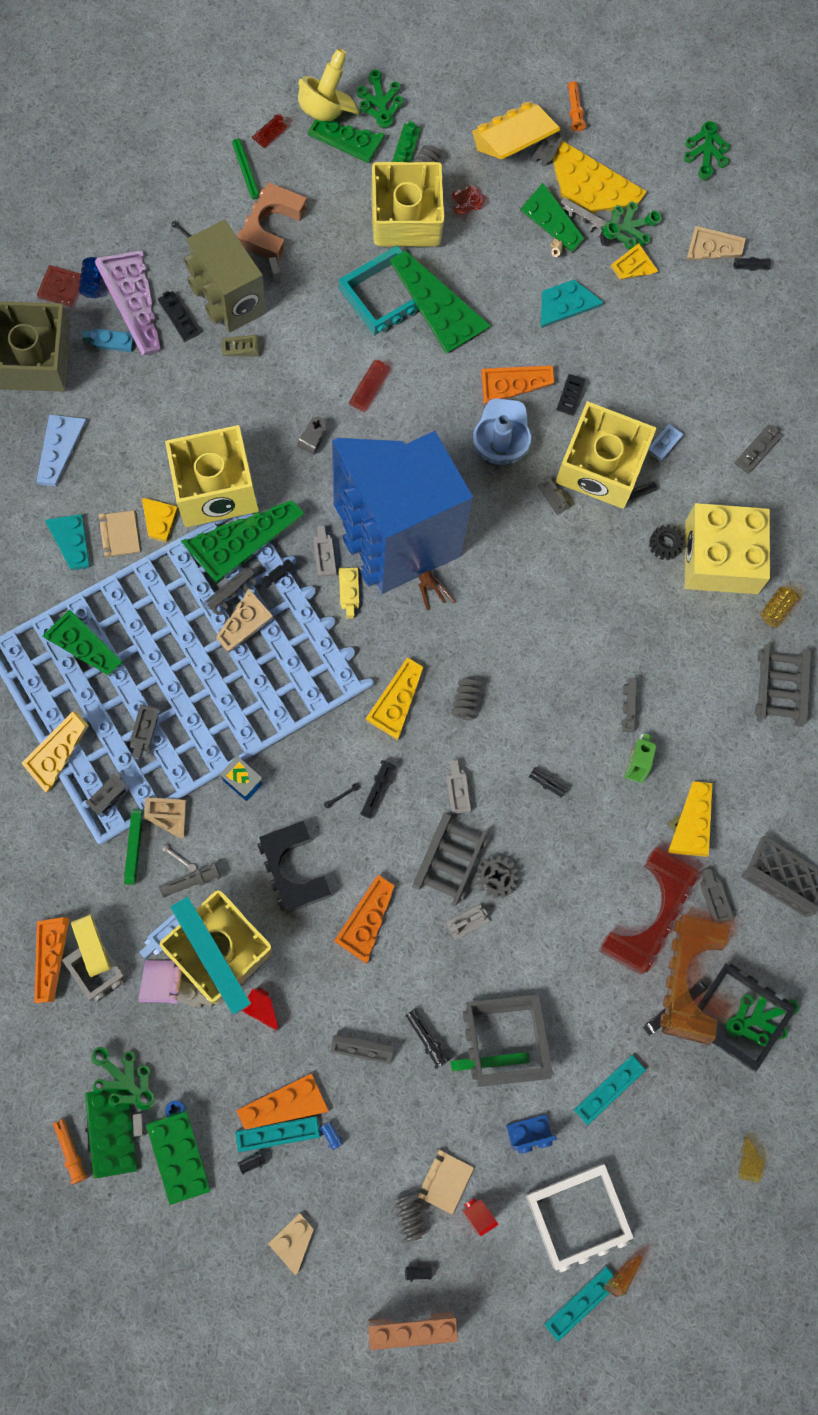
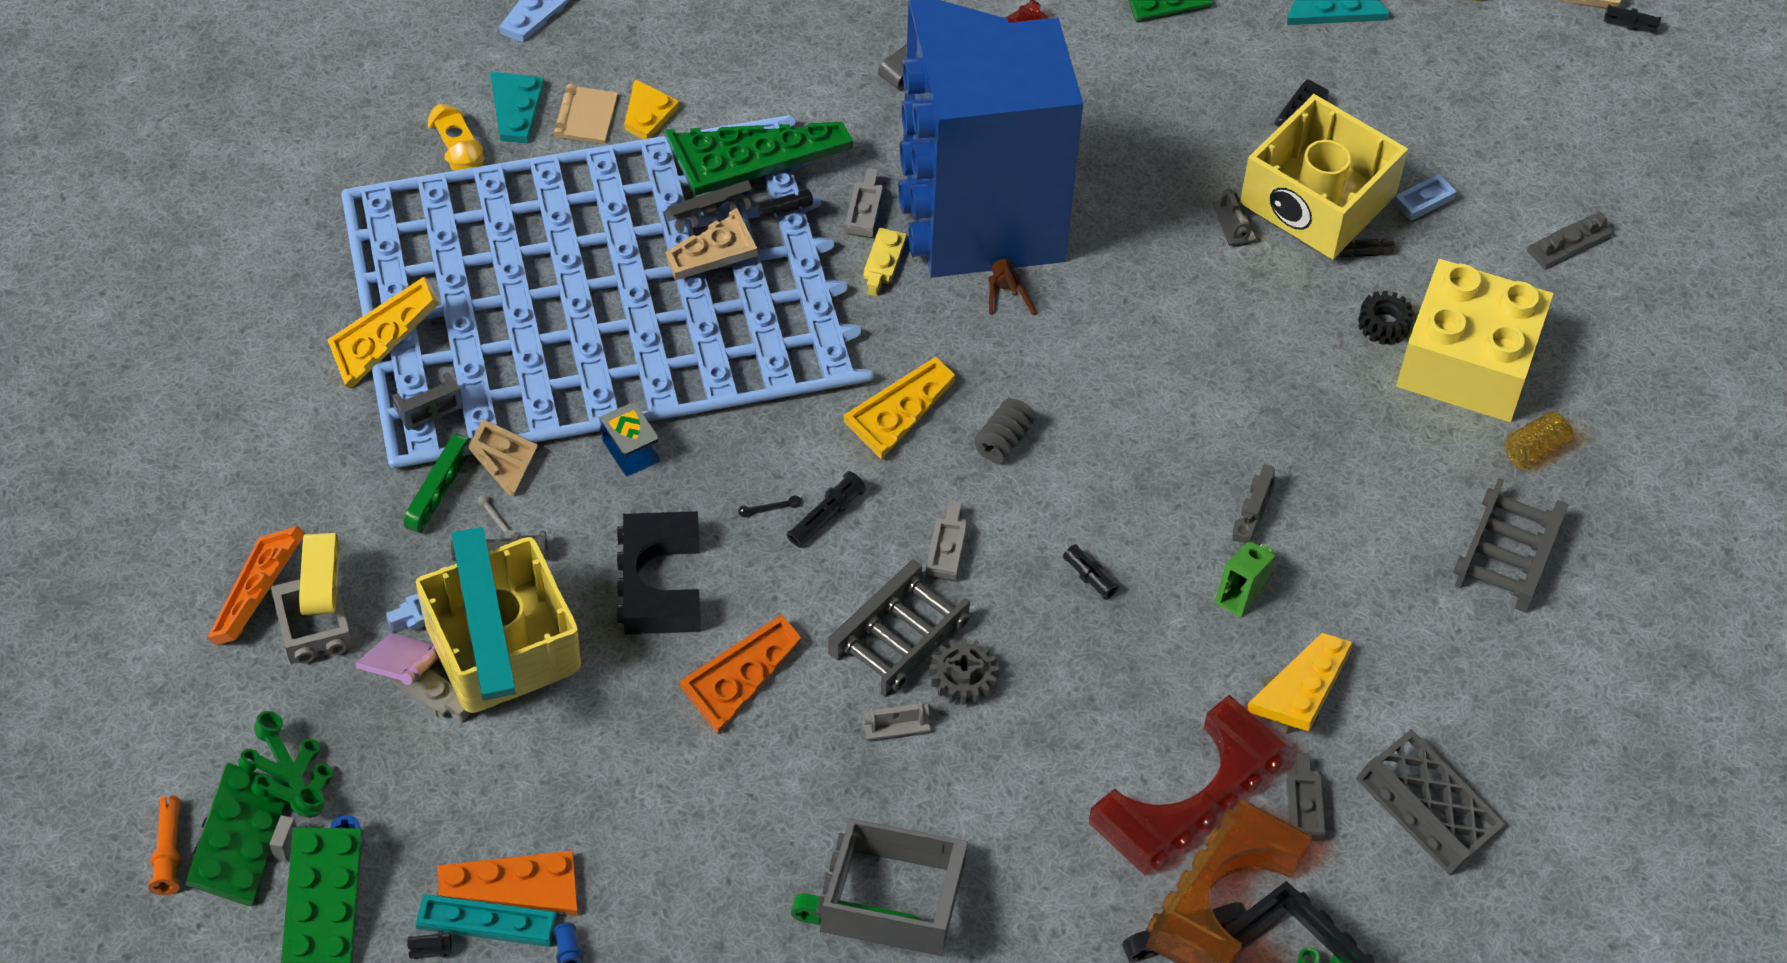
camera: 25 degrees right, 20 degrees down
(52, 591) = (463, 150): none -> yellow piece
(81, 642) = (476, 215): green wing -> none
(143, 730) = (514, 338): dark grey hinge -> none
(211, 476) = (738, 62): light yellow brick -> none
(261, 1008) = (531, 739): red slope -> none
(362, 1048) = (663, 839): dark grey plate -> none
(432, 1046) = (773, 870): black pin -> none
(506, 427) = (1183, 115): light blue piece -> none
(514, 381) = (1220, 73): orange wing -> none

